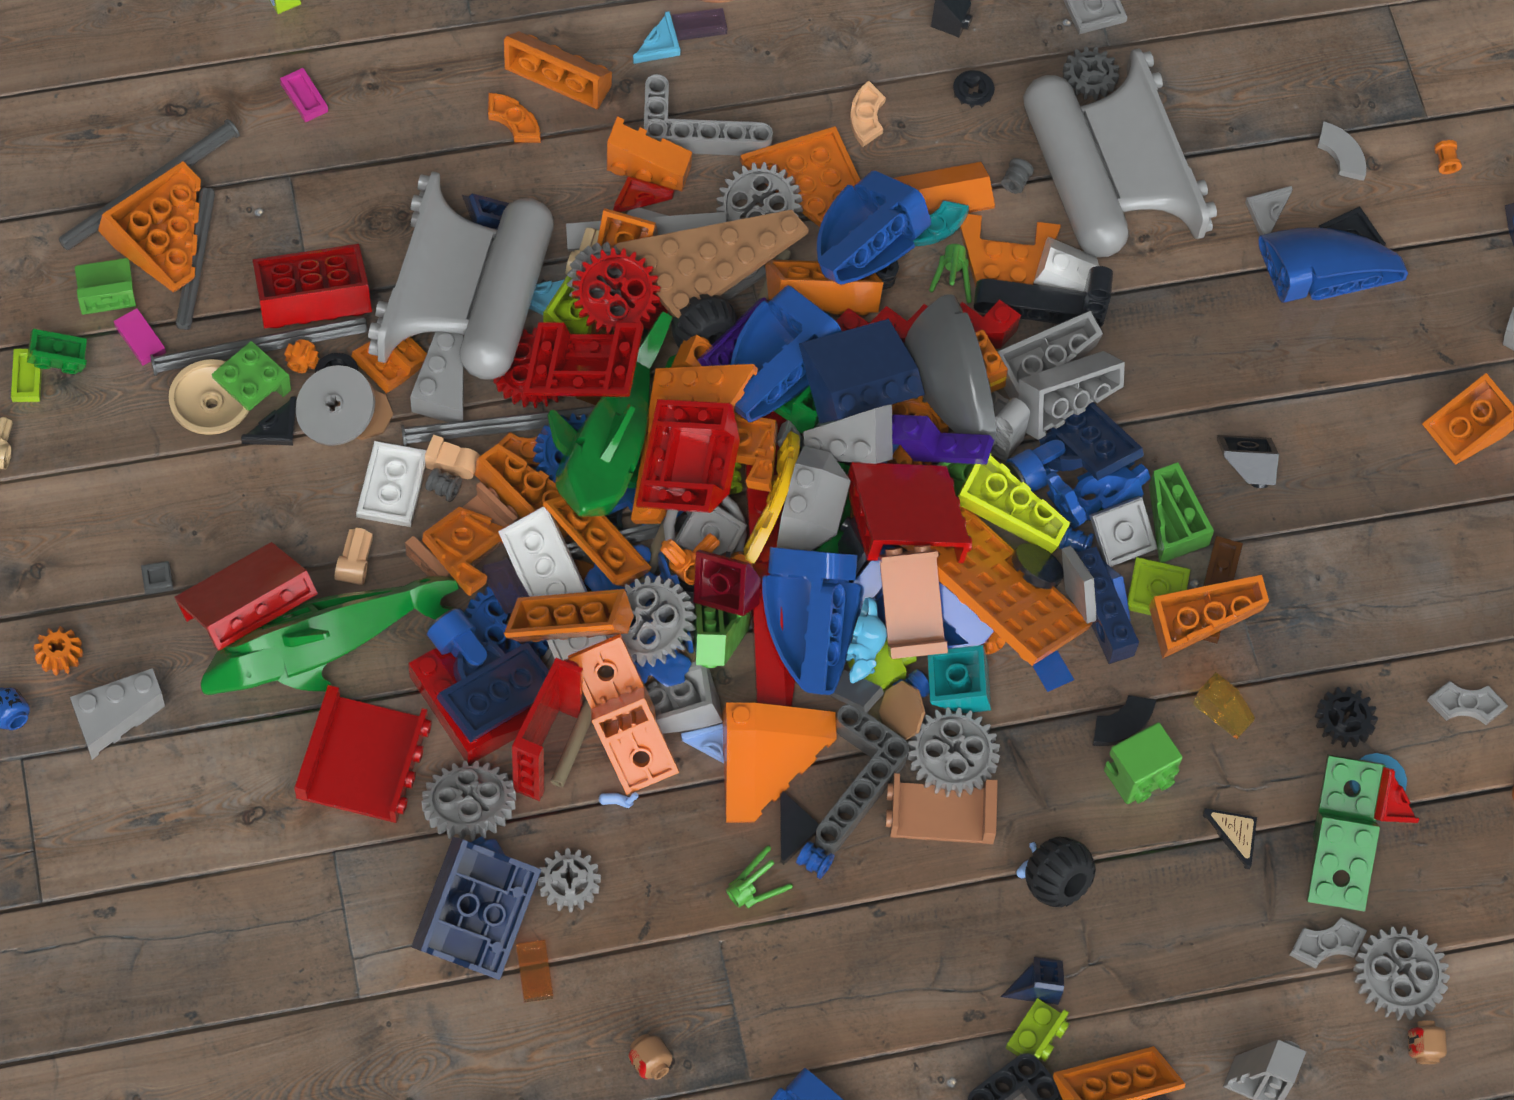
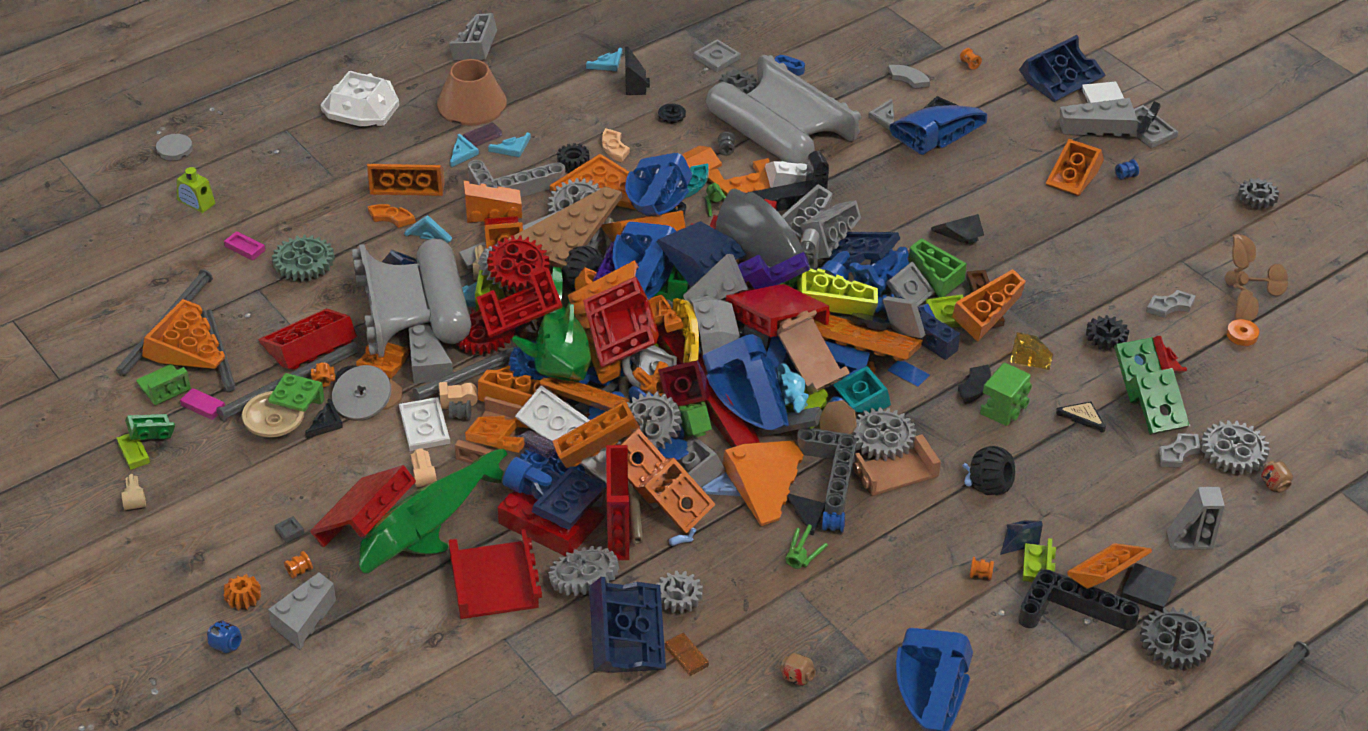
camera: 20 degrees left, 20 degrees down
(140, 639) = (298, 565): none -> orange bush
(346, 161) = (303, 258): none -> sand green gear
(546, 168) = (428, 229): none -> medium azure tile
(729, 61) = (511, 146): none -> medium azure tile
(796, 106) = (572, 156): none -> black tyre
(959, 1012) = (981, 568): none -> orange bush
(1182, 66) = (793, 65): none -> blue beam

